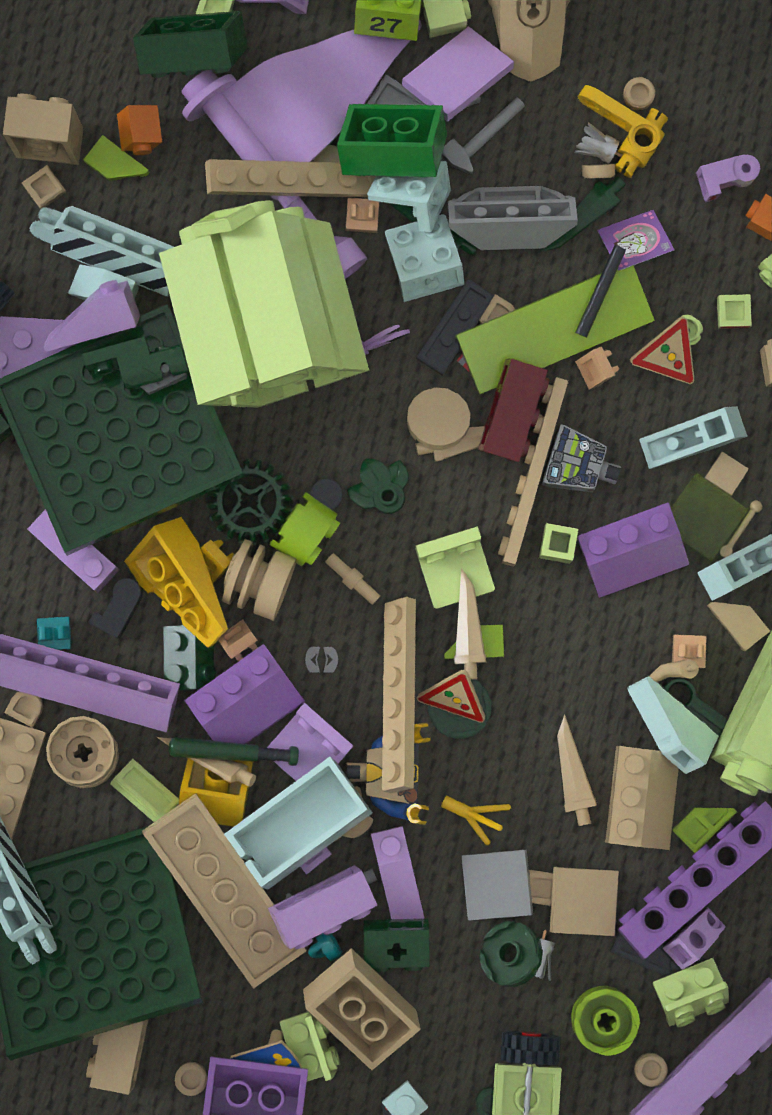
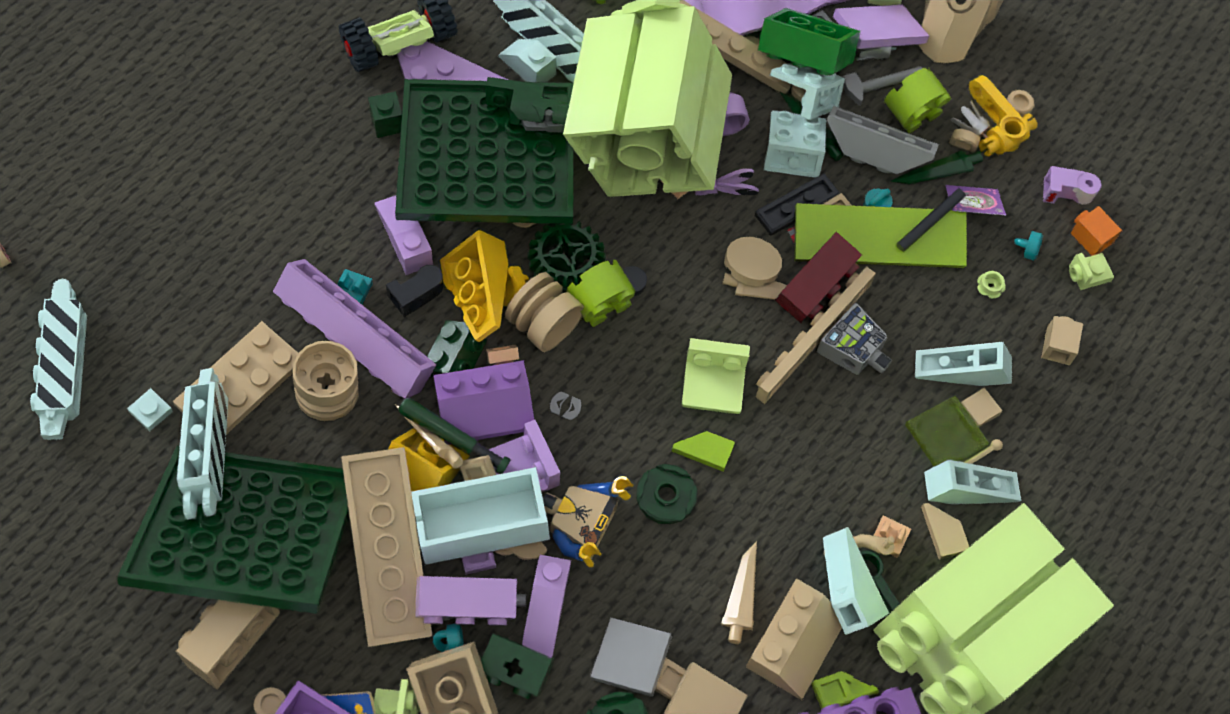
camera: 20 degrees right, 20 degrees down
(25, 708) = (297, 333): tan tile -> none
(101, 314) = (516, 62): lavender slope -> none
(144, 791) = (358, 433): yellowish green tile -> none
(274, 775) = (477, 468): none -> tan tile
(352, 578) = (623, 352): tan bar -> none
(362, 215) = (759, 96): light nougat tile -> none
(377, 482) = (680, 293): dark green plate -> none
(399, 695) = (618, 453): tan plate -> none
(455, 696) = (668, 476): piece -> none
(469, 636) = (700, 441): tan bar -> none
(471, 815) = (634, 584): yellow plant -> none
(531, 148) = (917, 99): none -> lime brick
(536, 286) = (878, 198): none -> teal tile
(558, 543) = (812, 394): yellowish green brick -> none
(596, 367) = (903, 278): light nougat tile -> none
(633, 550) = (875, 428): medium lavender slope -> none
(668, 353) = (969, 292): piece -> none
(713, 268) = (1032, 245): none -> teal tile
(734, 311) = (1037, 286): yellowish green plate -> none

